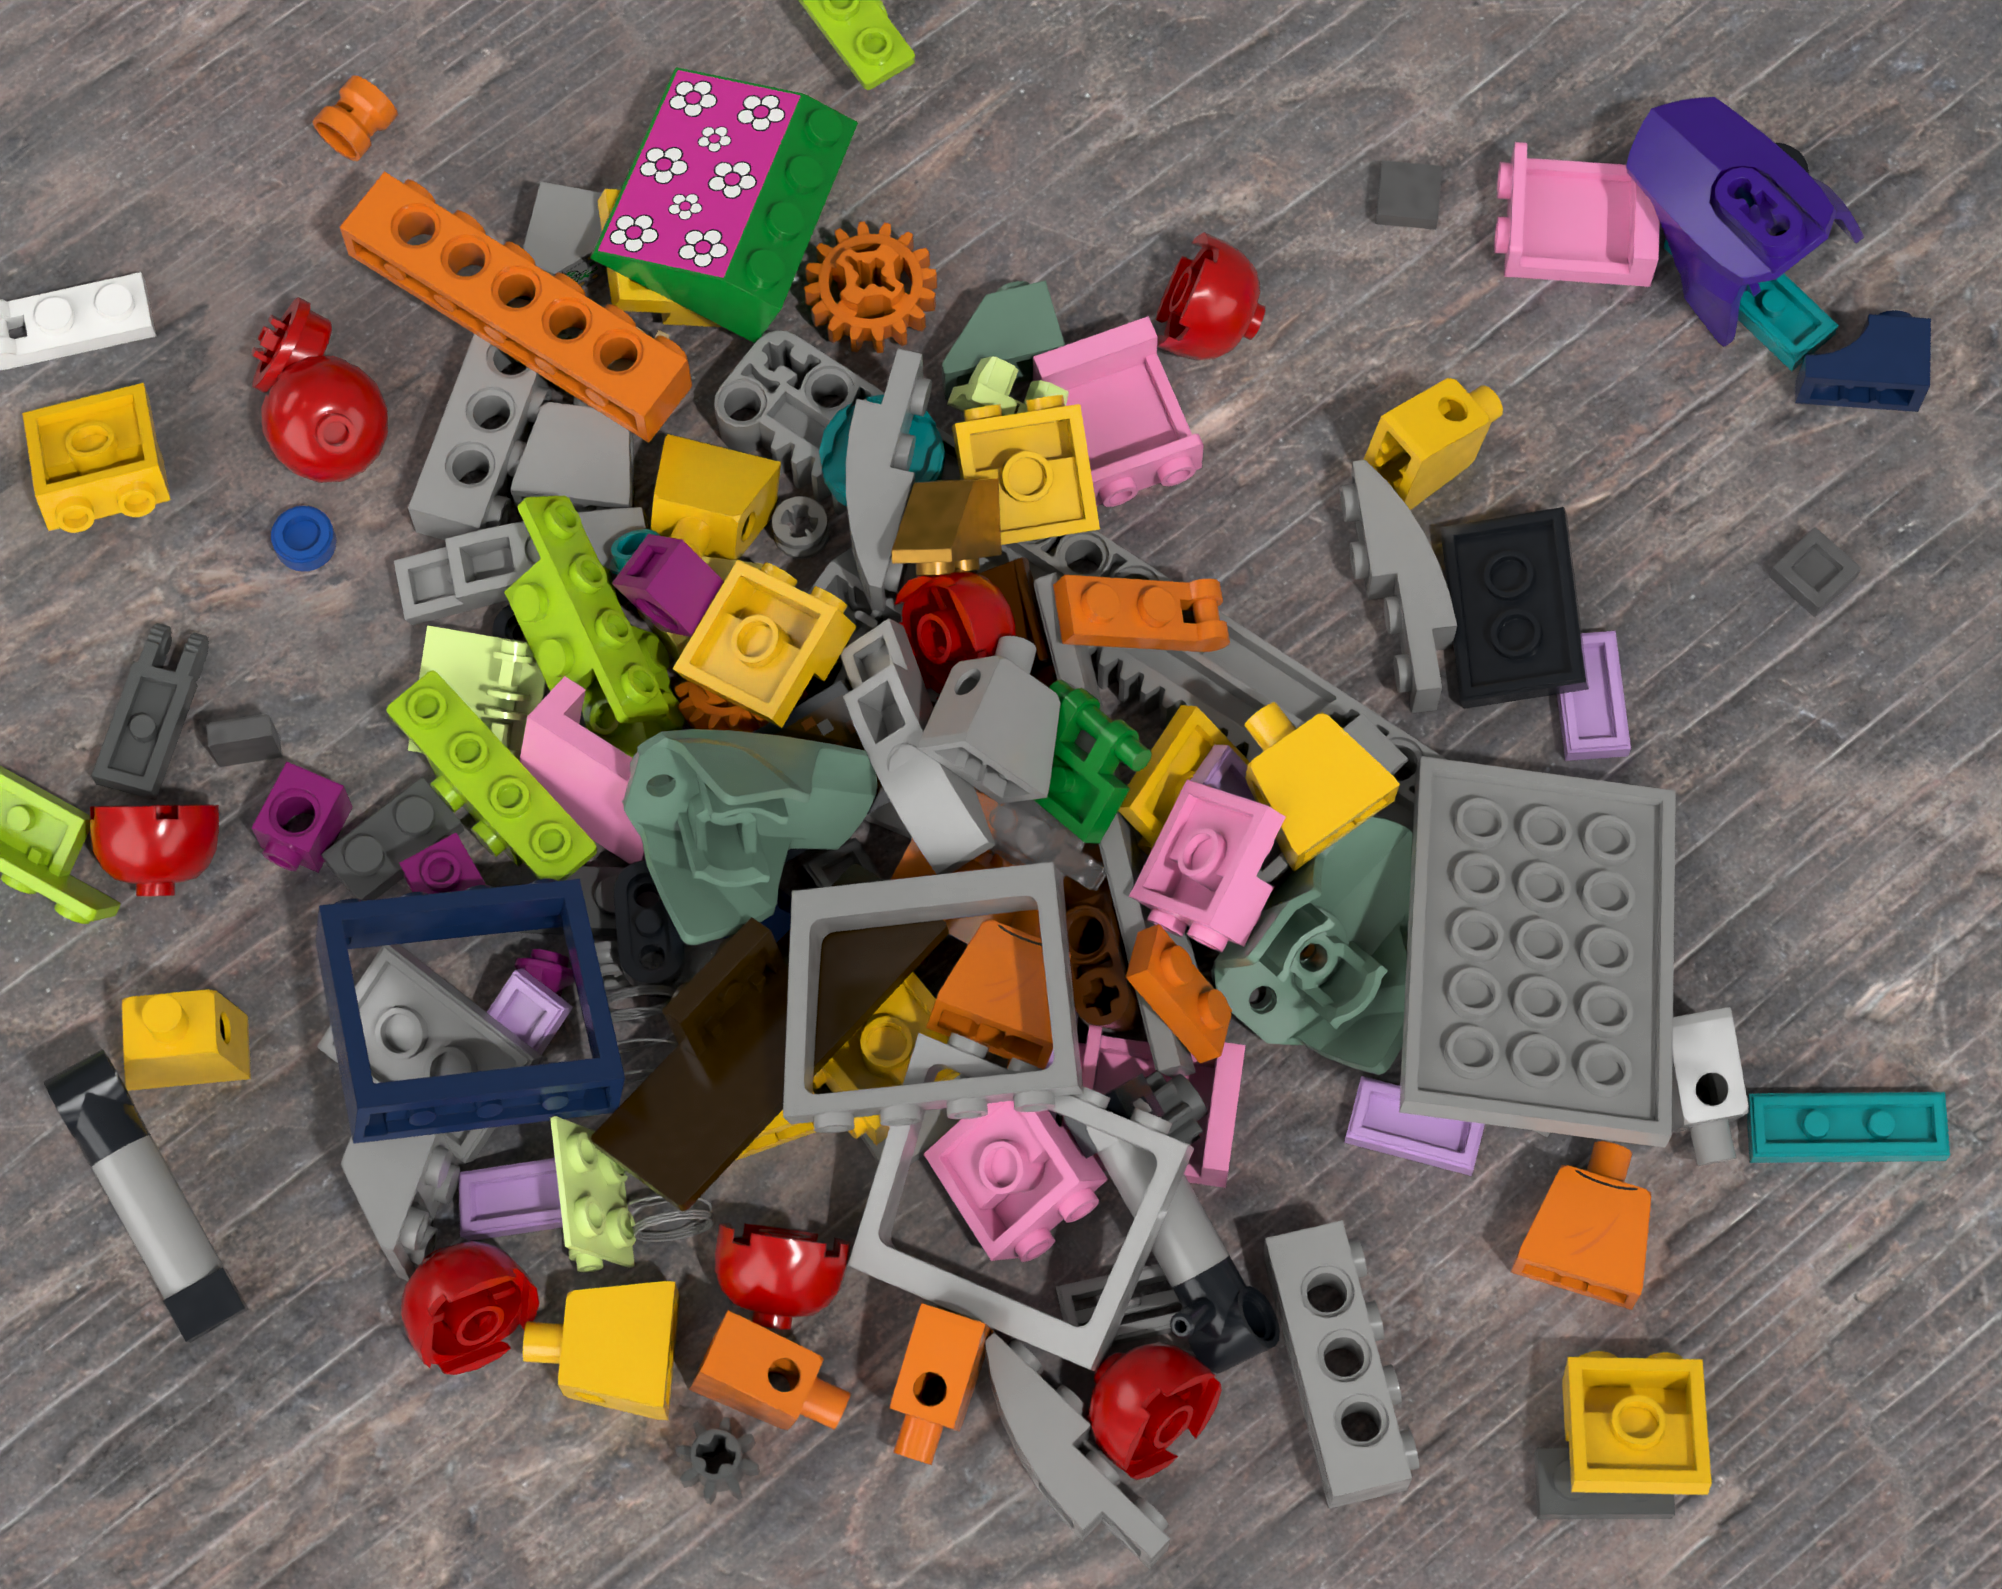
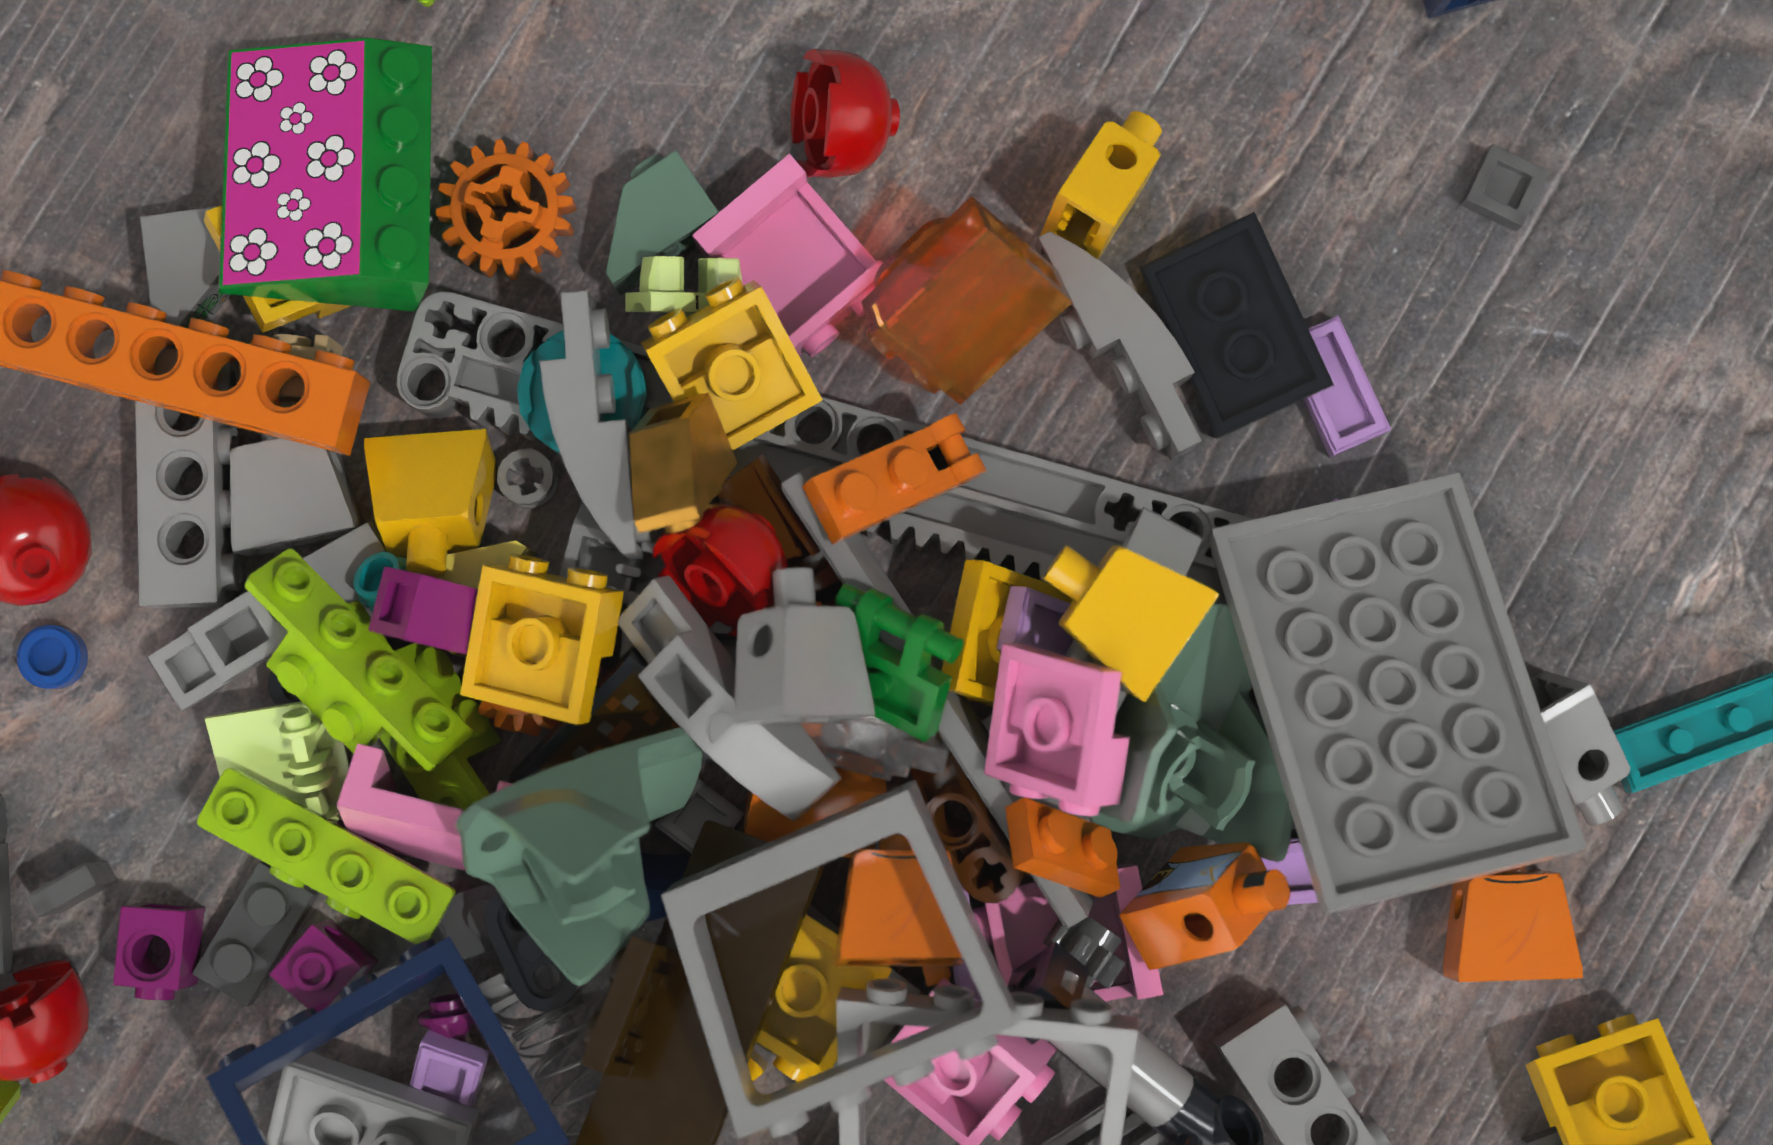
camera: 20 degrees left, 15 degrees up
(1260, 487) = (961, 300): none -> clear orange brick
(1323, 1087) = (1203, 903): none -> orange torso

